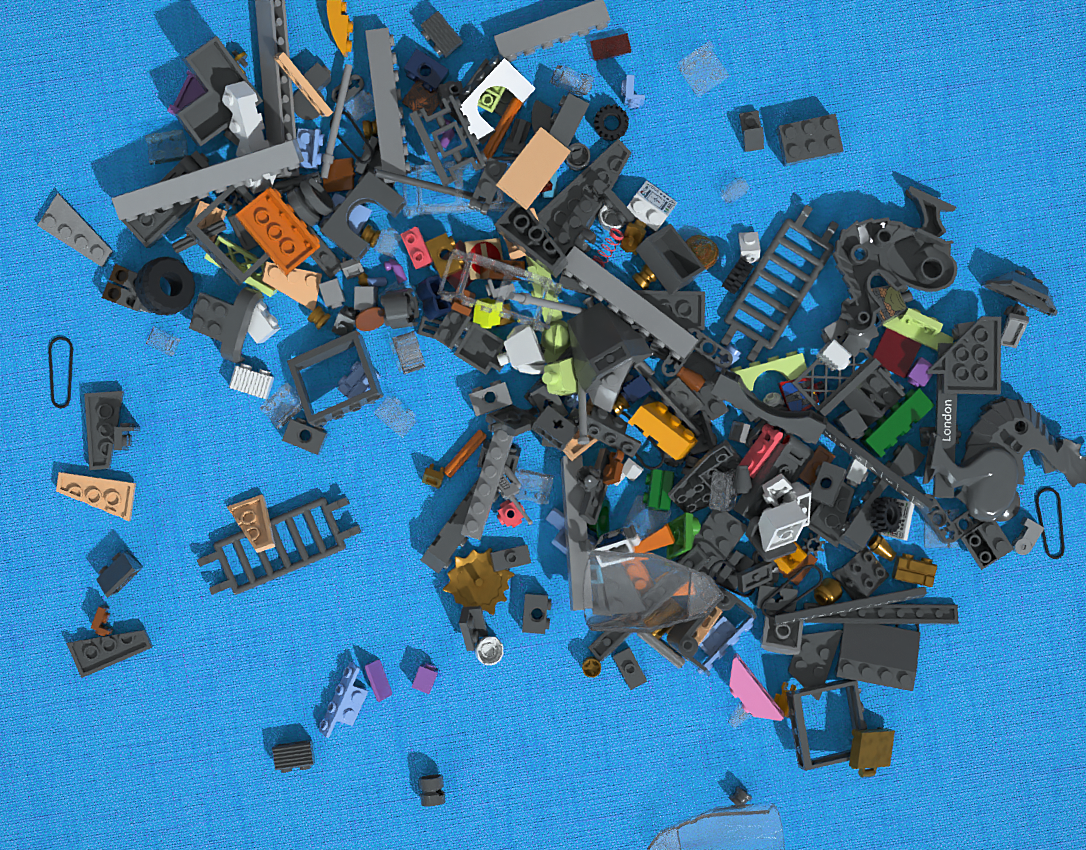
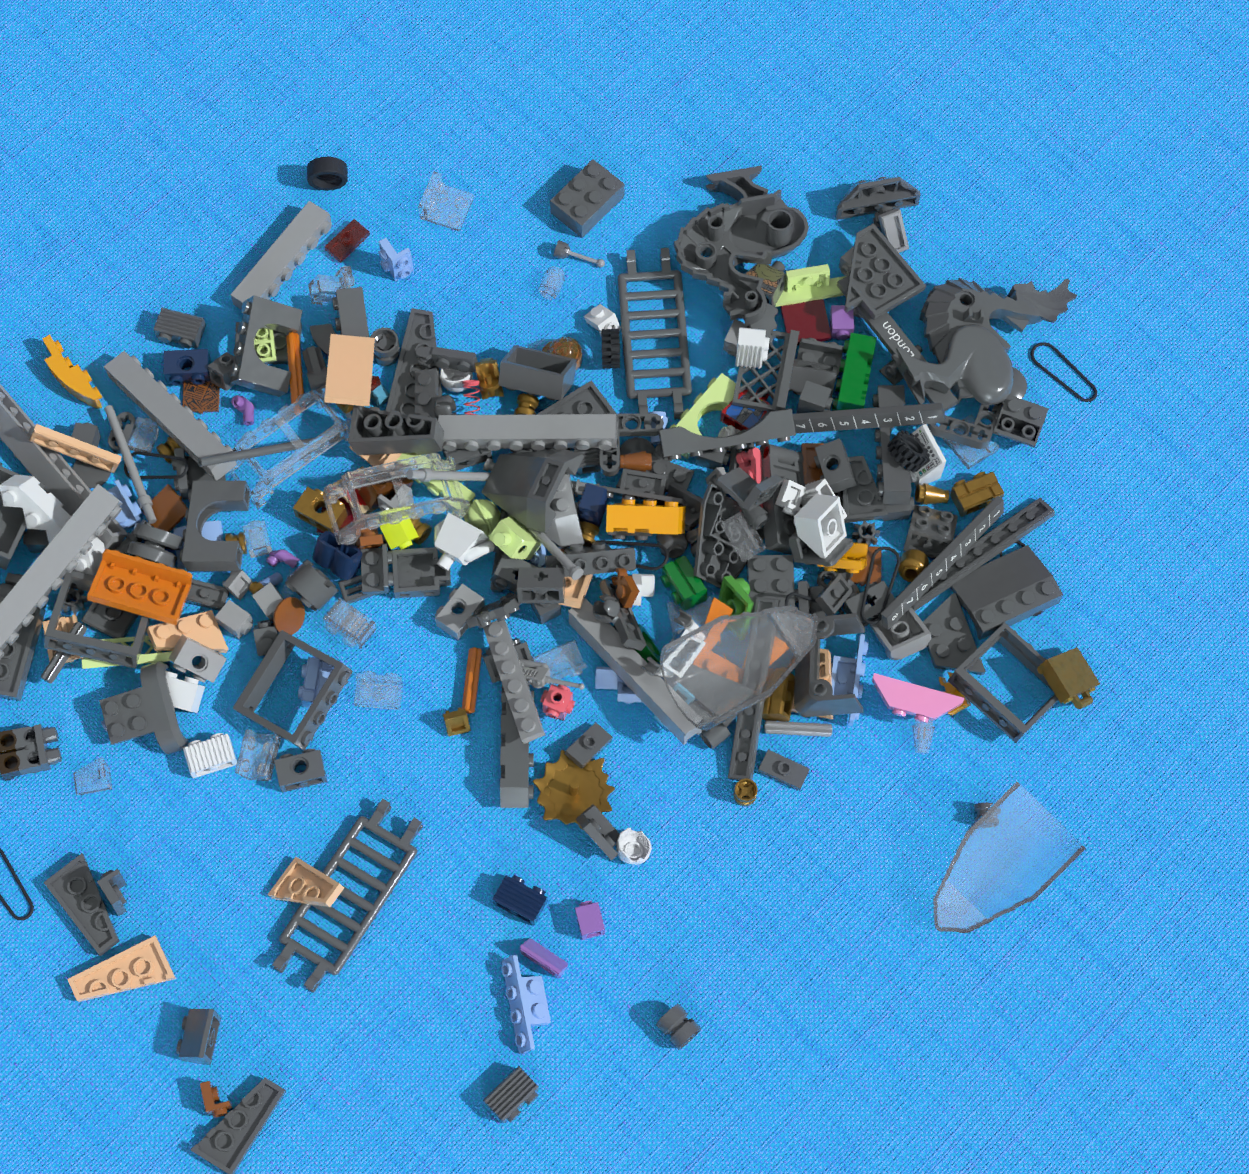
camera: 35 degrees left, 20 degrees down
(149, 288) = (59, 717): black tyre -> none
(294, 311) = (210, 663): none -> light grey brick
(319, 317) = (236, 650): pearl gold wheel -> none
(389, 631) = (520, 899): none -> dark blue brick
(416, 248) = (289, 520): coral bracket -> none
(435, 146) = (243, 412): dark grey fence -> none
(487, 185) = (317, 413): dark grey plate -> none
(532, 624) = (653, 792): dark grey brick -> none
(611, 111) = (394, 289): black tyre -> none
(651, 206) = (486, 343): white slope -> none
(747, 462) = (746, 490): none -> dark grey bracket
(751, 131) = (530, 226): dark grey slope -> none
(762, 169) = (563, 250): none -> hinge
(856, 473) = (854, 442): white brick -> none
(1028, 537) = (1053, 394): light grey leg -> none

